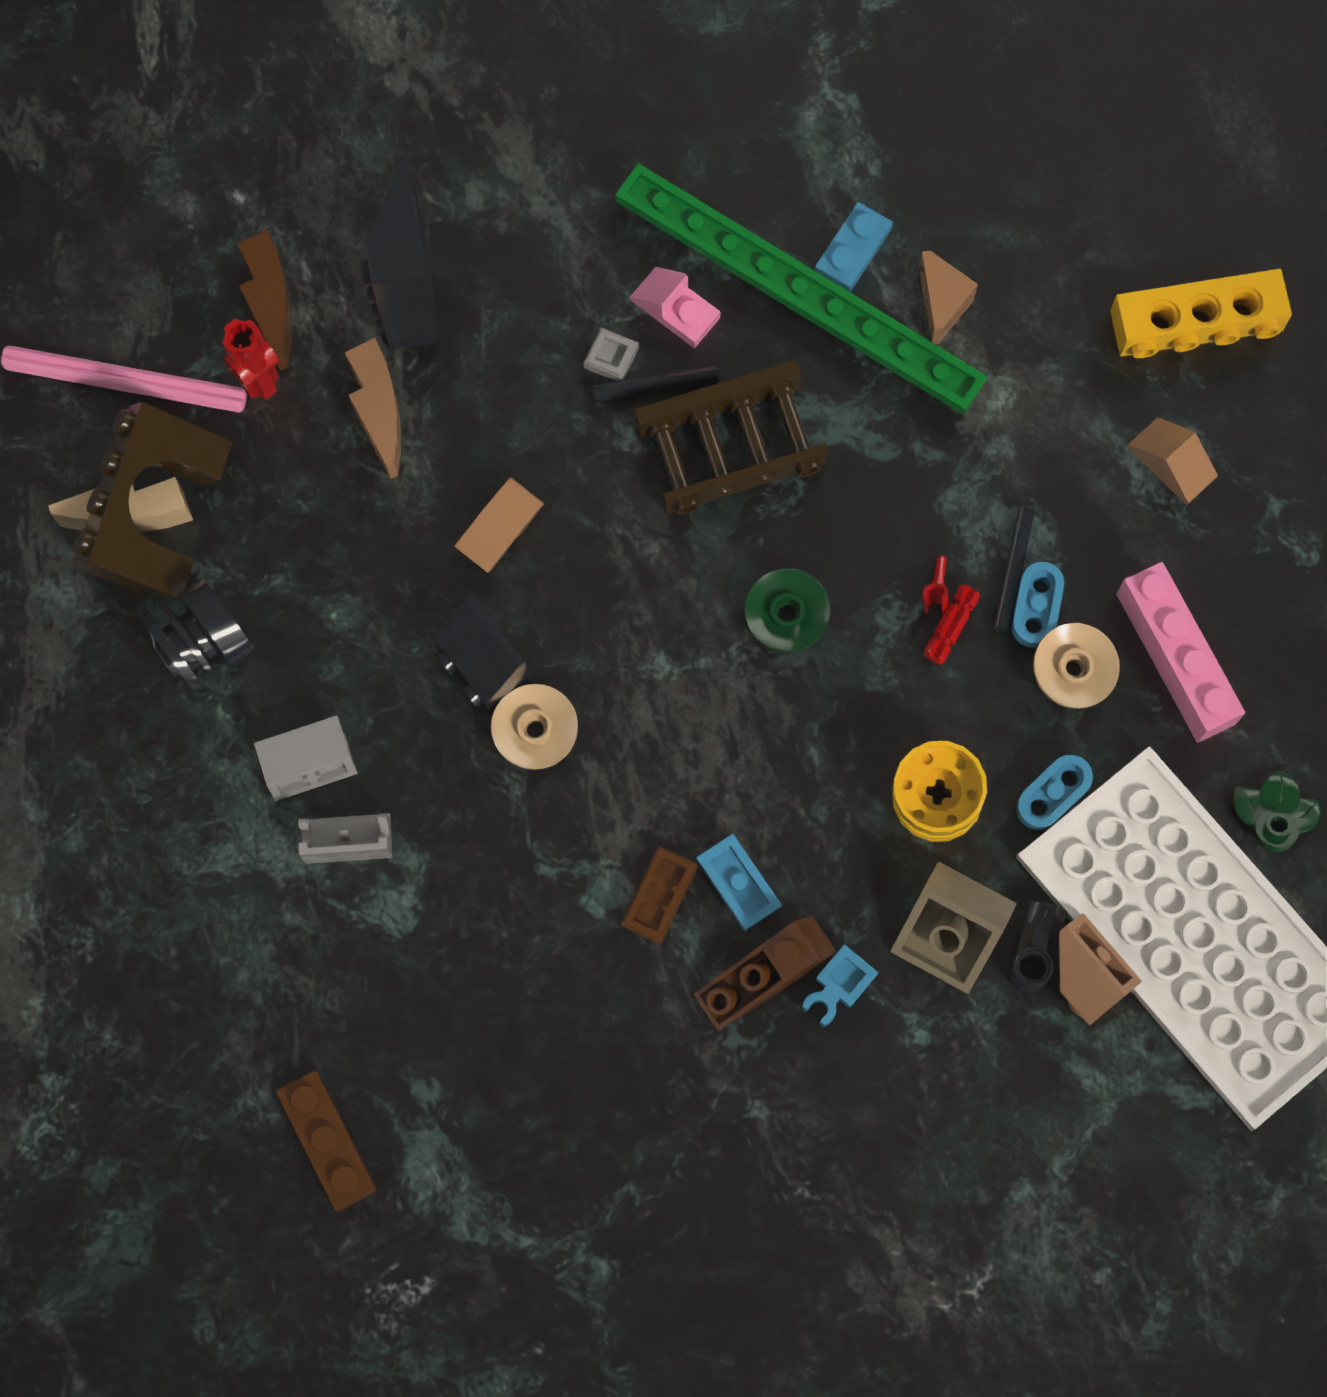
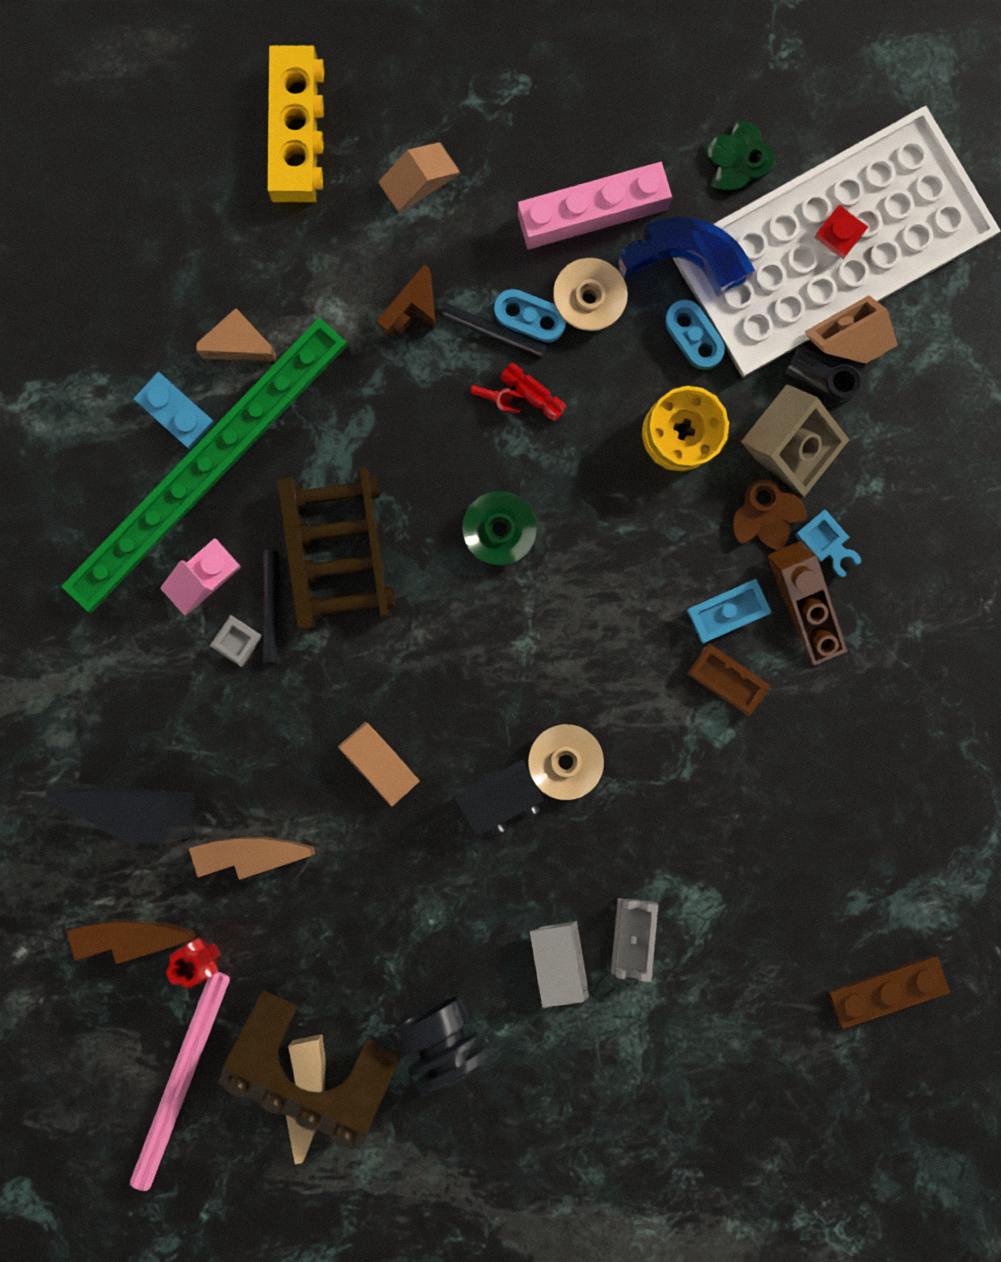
camera: 80 degrees left, 10 degrees up
(853, 914) = (767, 521): none -> reddish brown plate
(1034, 475) = (415, 297): none -> reddish brown slope
(1160, 765) = (695, 241): none -> clear blue arch
(1210, 936) = (841, 232): none -> red plate

